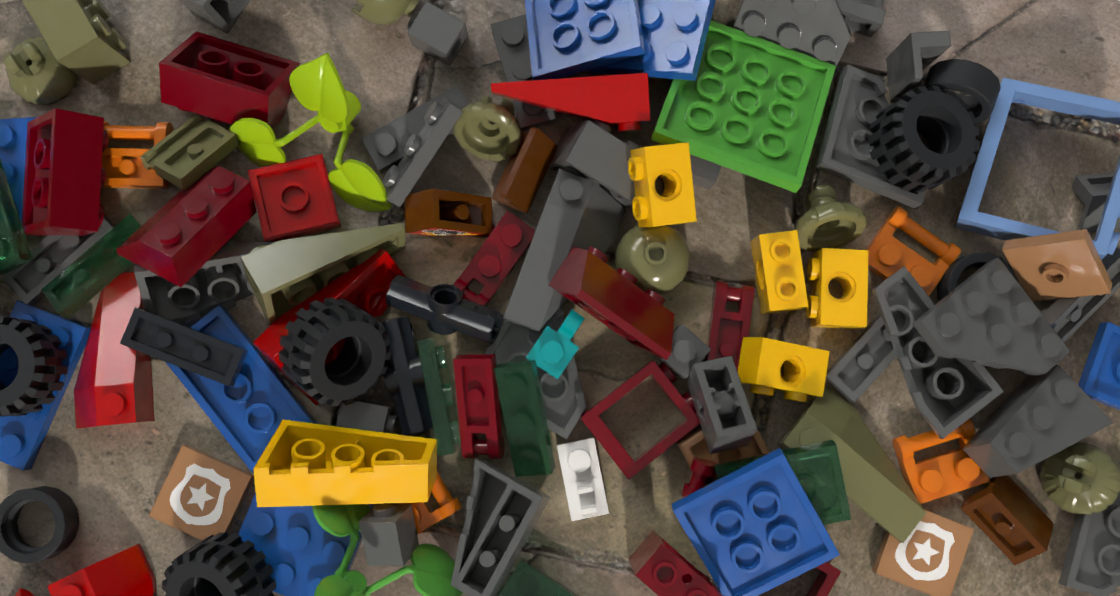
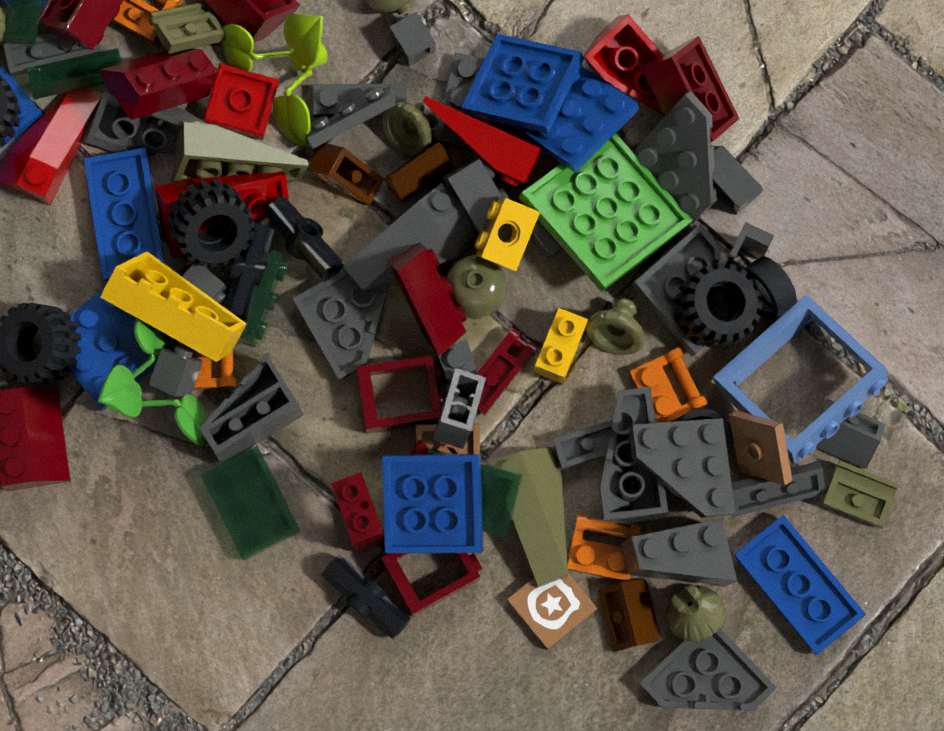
camera: 30 degrees right, 5 degrees down
(184, 346) = (106, 163): black plate -> none
(201, 494) = (56, 274): medium nougat tile -> none
(478, 405) = (289, 319): dark red plate -> none
(496, 258) = (361, 224): dark red plate -> none
(525, 418) = (317, 347): clear green plate -> none
(554, 349) = (366, 309): teal plate -> none
(582, 479) = (334, 416): white plate -> none
(803, 368) = (540, 417): yellow brick -> none
(851, 271) = (596, 400): yellow brick -> none

